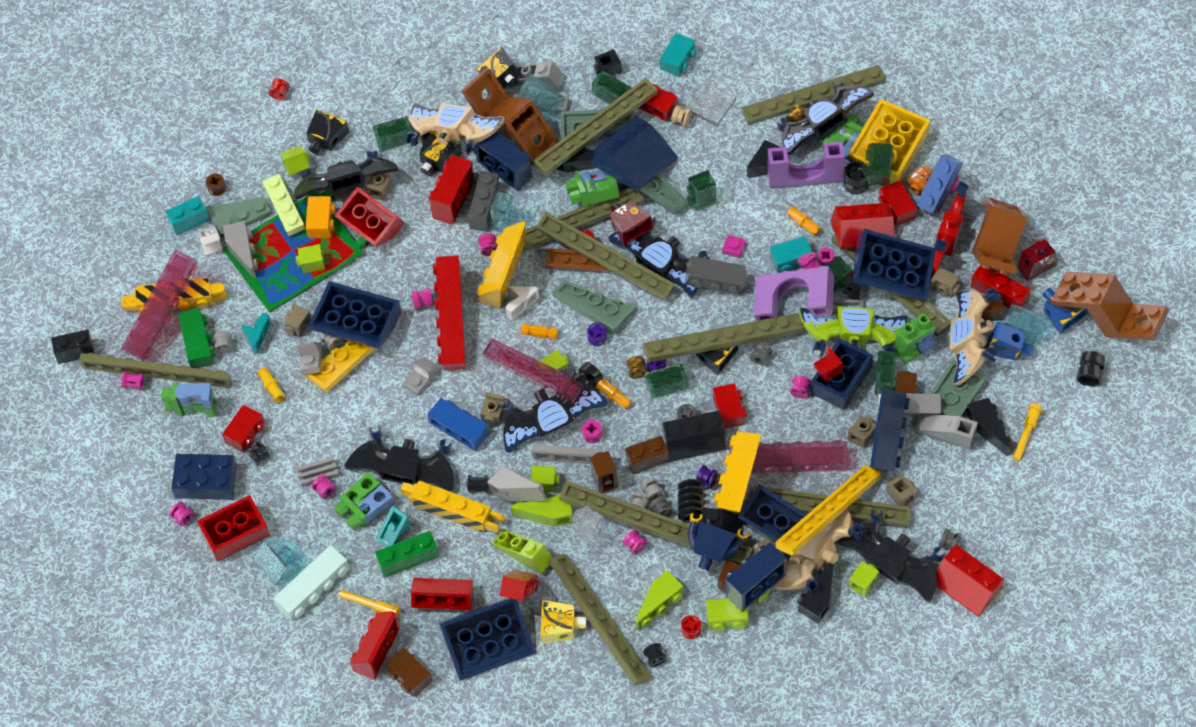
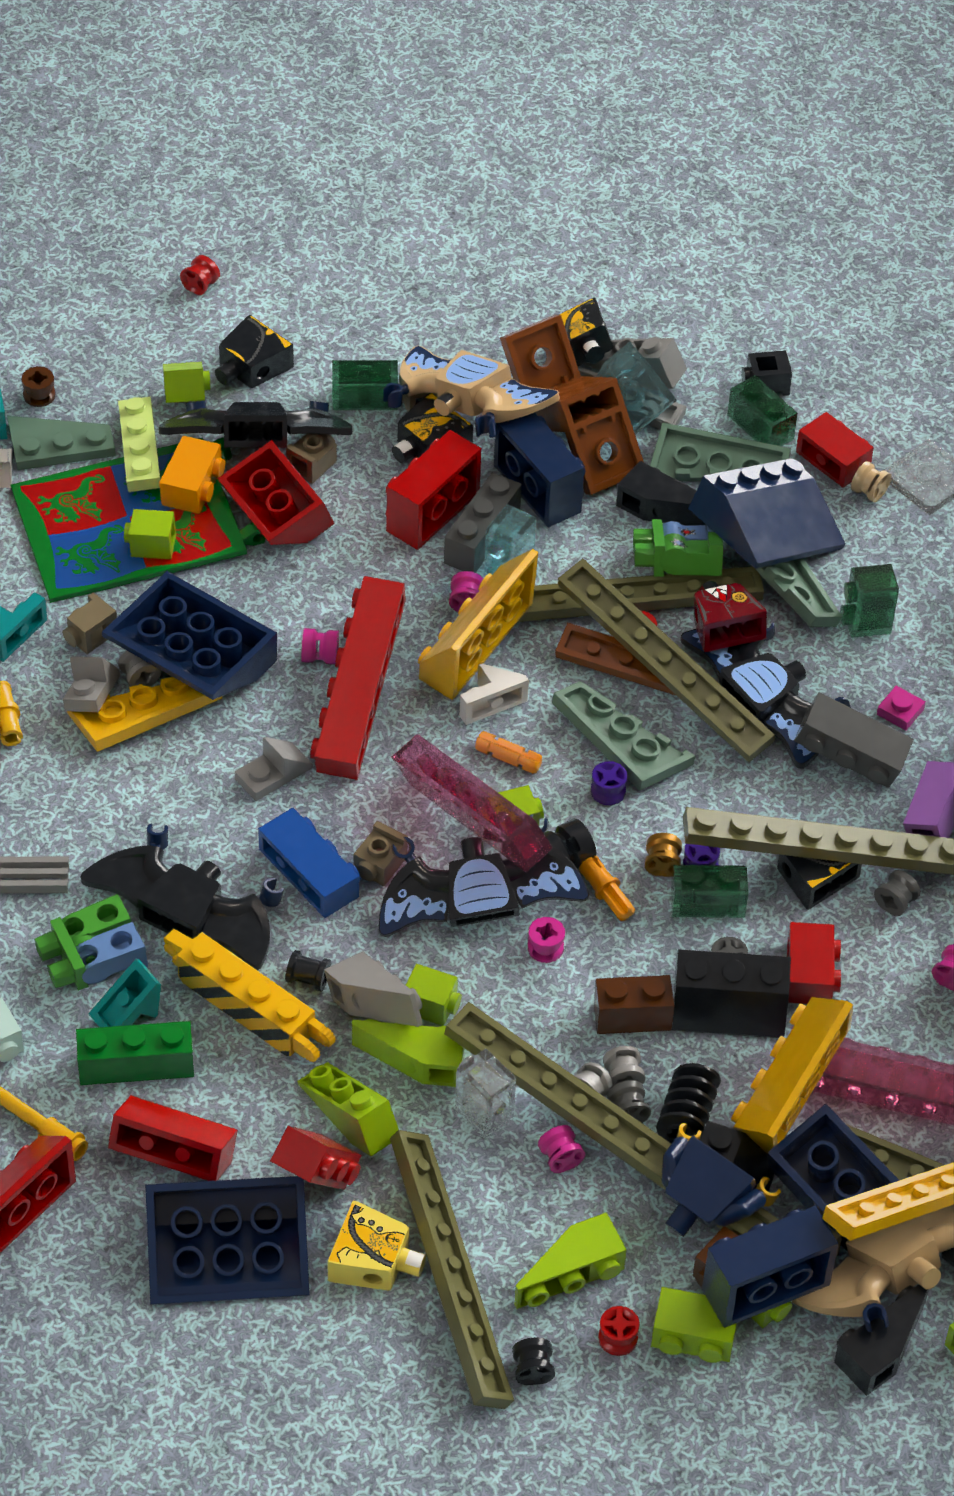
camera: 10 degrees right, 10 degrees down
(238, 243) = (40, 479): light grey slope -> none
(323, 486) = (31, 900): dark pink wheel -> none
(408, 672) = (60, 1261): reddish brown brick -> none
(563, 454) = (495, 968): light grey tile -> none
(595, 126) = (714, 454): olive plate -> none
(603, 472) = (543, 1009): reddish brown brick -> none
(677, 55) = (893, 389): teal brick -> none
(707, 476) = (734, 1072): dark purple wheel -> none

